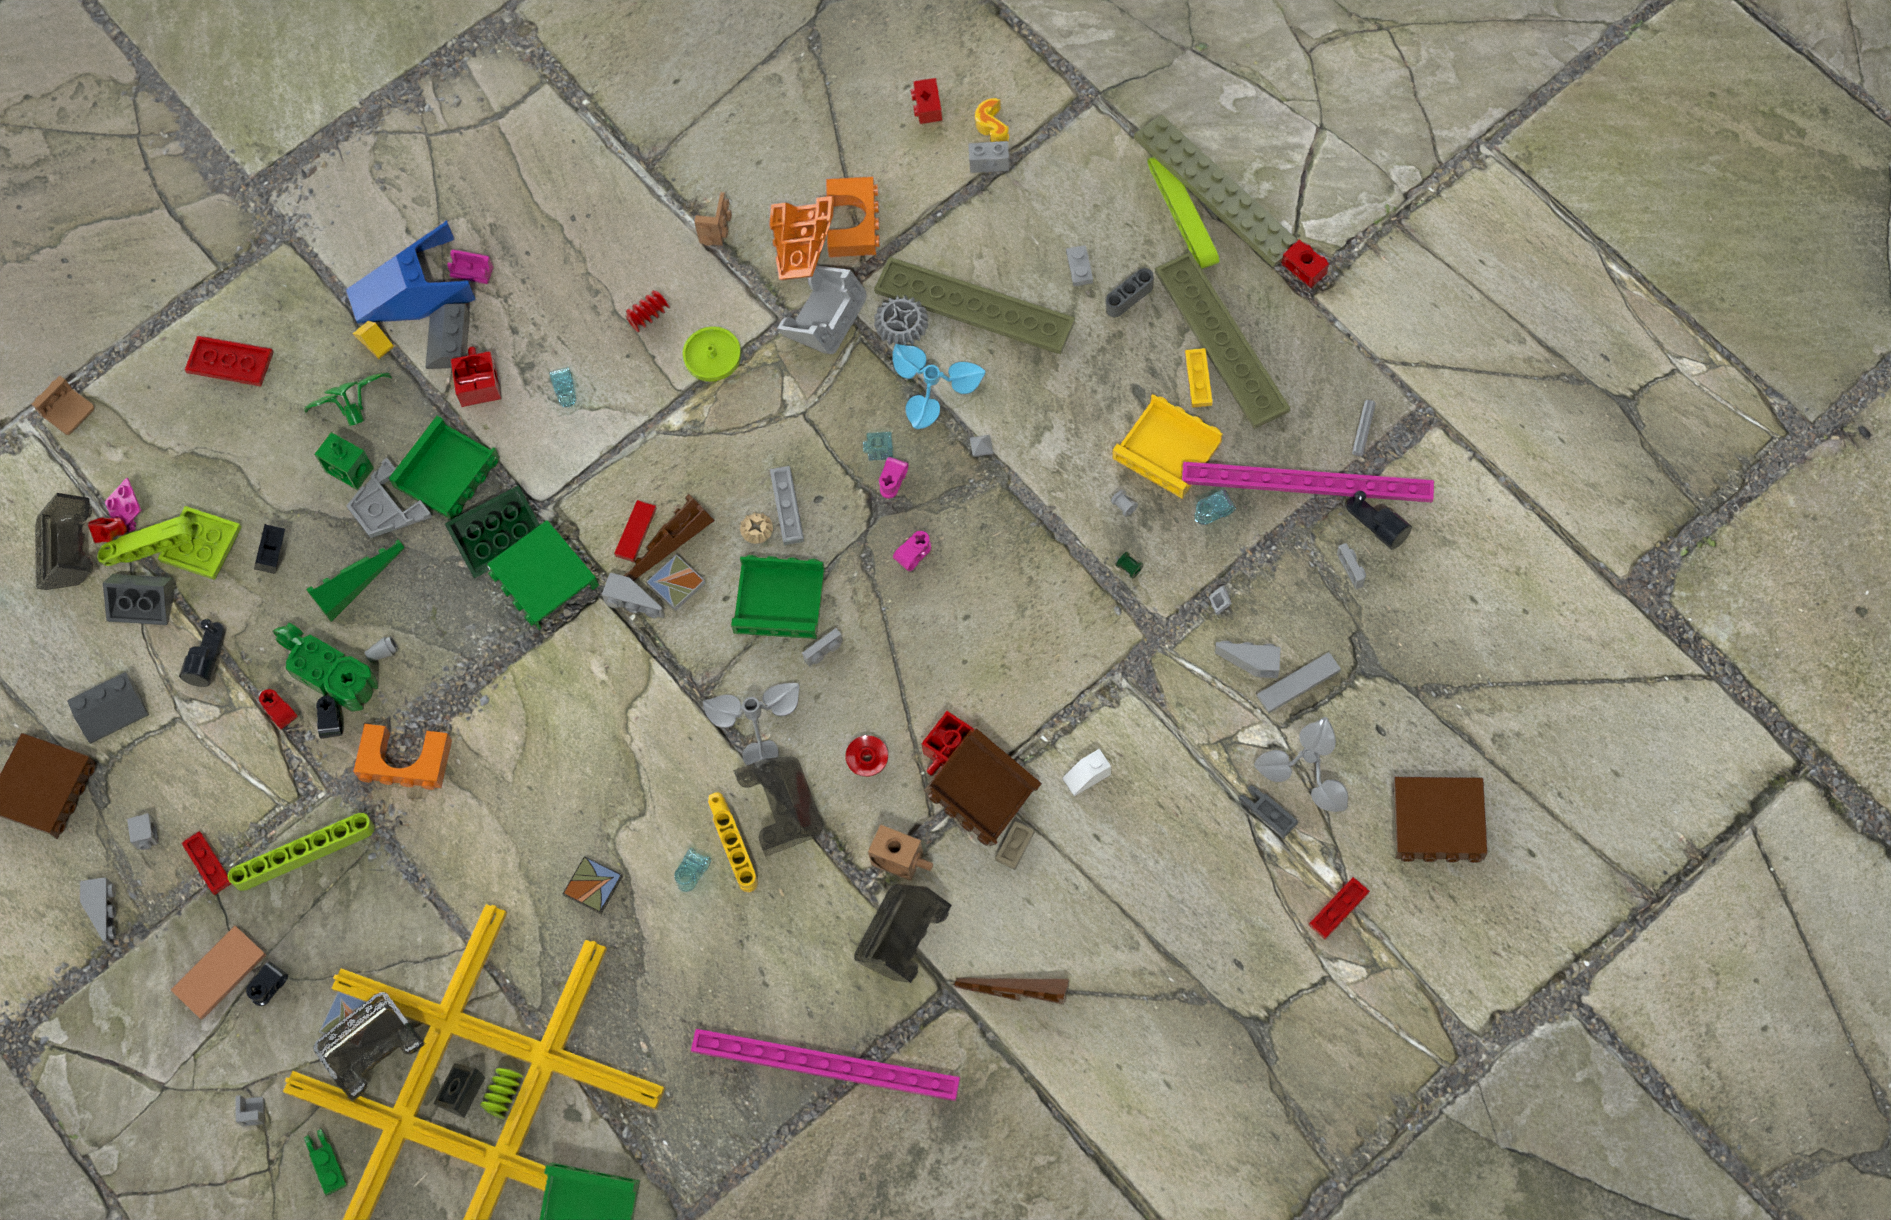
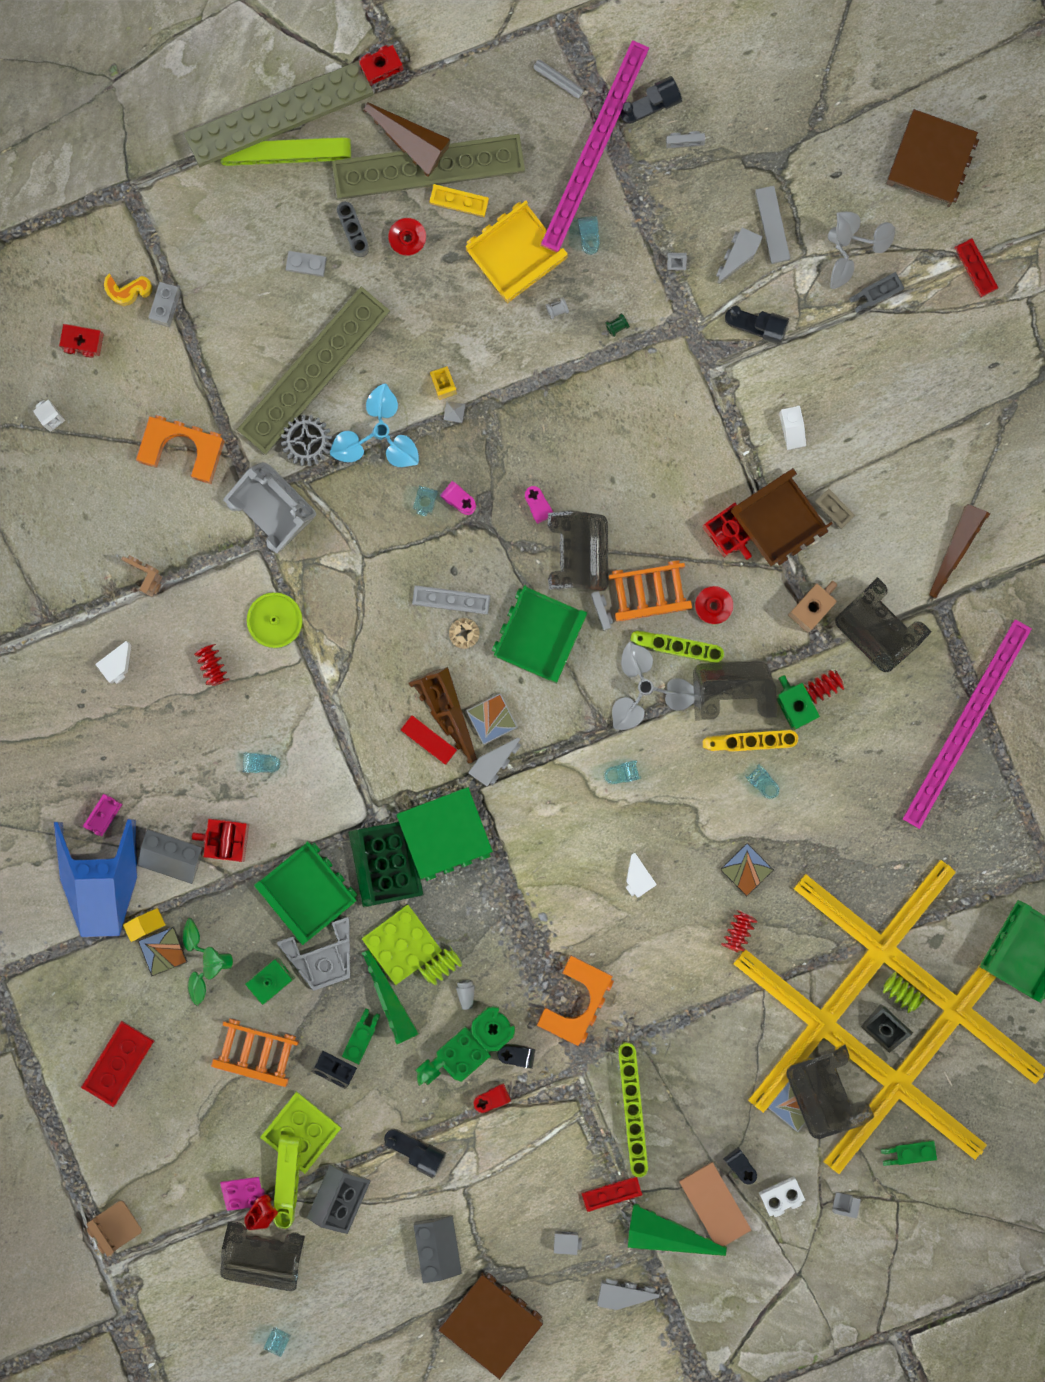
camera: 75 degrees left, 20 degrees up
(172, 916) = (657, 1233): none -> green wedge
(246, 1034) = (780, 1191): none -> white brick
(251, 467) = (260, 1071): none -> orange fence
(310, 567) = (360, 1038): none -> green hinge
(351, 362) = (162, 951): none -> tile
(403, 615) = (441, 966): none -> lime piece
(417, 574) = (401, 944): none -> lime plate
(521, 897) = (739, 932): none -> red piece
(552, 775) = (638, 878): none -> white slope
(622, 230) = (116, 663): none -> white slope
(658, 726) = (623, 772): none -> clear light blue piece
(784, 871) = (796, 694): none -> green piece
(800, 236) = (188, 501): orange wedge -> none
(807, 703) = (648, 638): none -> lime piece
(814, 896) = (823, 687): none -> red piece
(843, 96) = (48, 415): none -> white slope
(848, 705) = (643, 609): none -> orange fence
(877, 608) = (581, 551): none -> clear smoke windscreen
(1004, 424) = (443, 383): none -> yellow slope
(1144, 335) = (406, 227): none -> red dish
(1185, 711) = (768, 326): none -> black piece
(1241, 315) = (417, 141): none -> wedge

